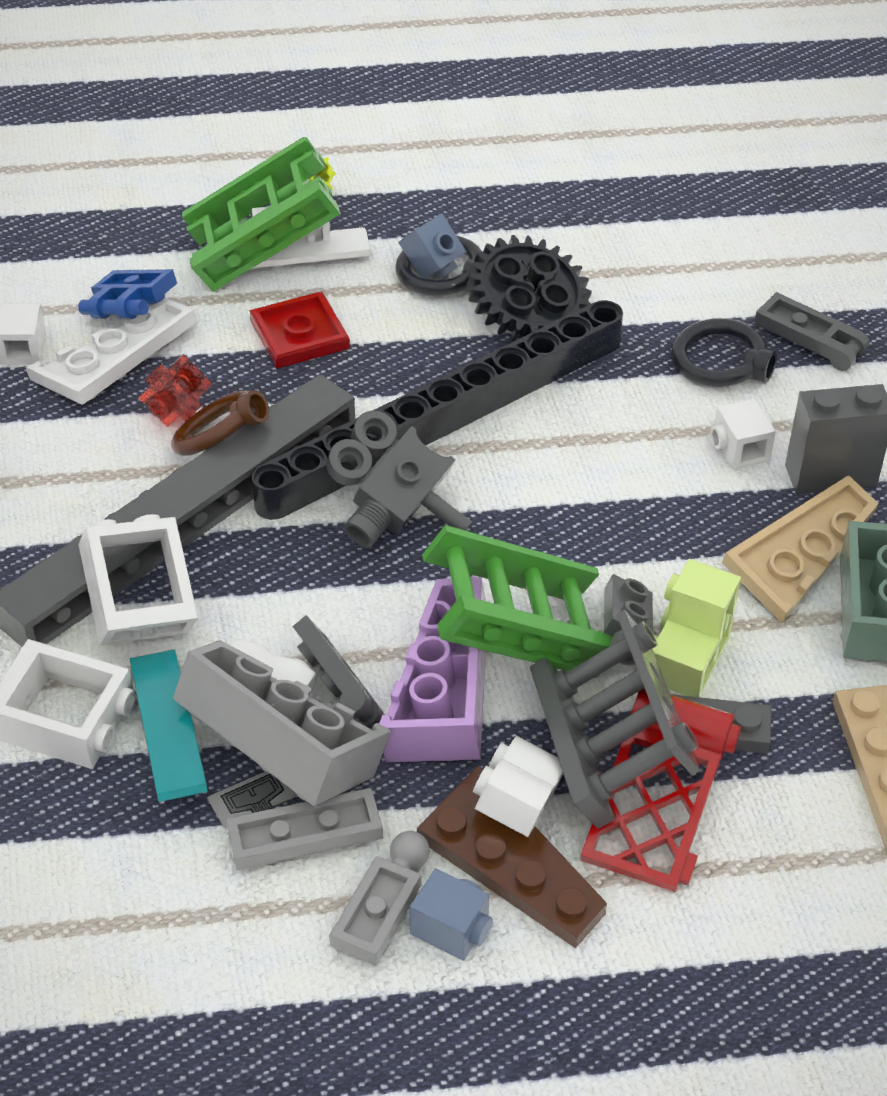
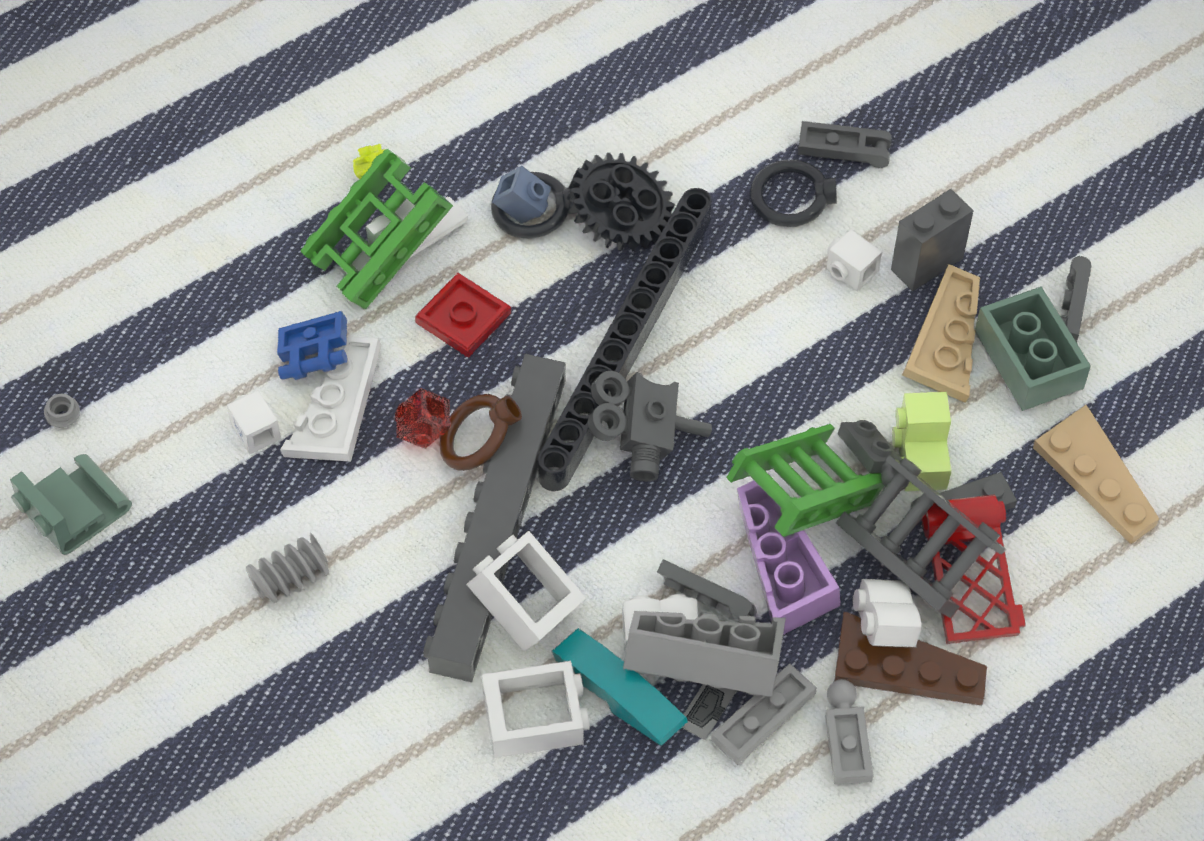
camera: 30 degrees left, 10 degrees up
(451, 914) = (899, 724): sand blue brick -> none

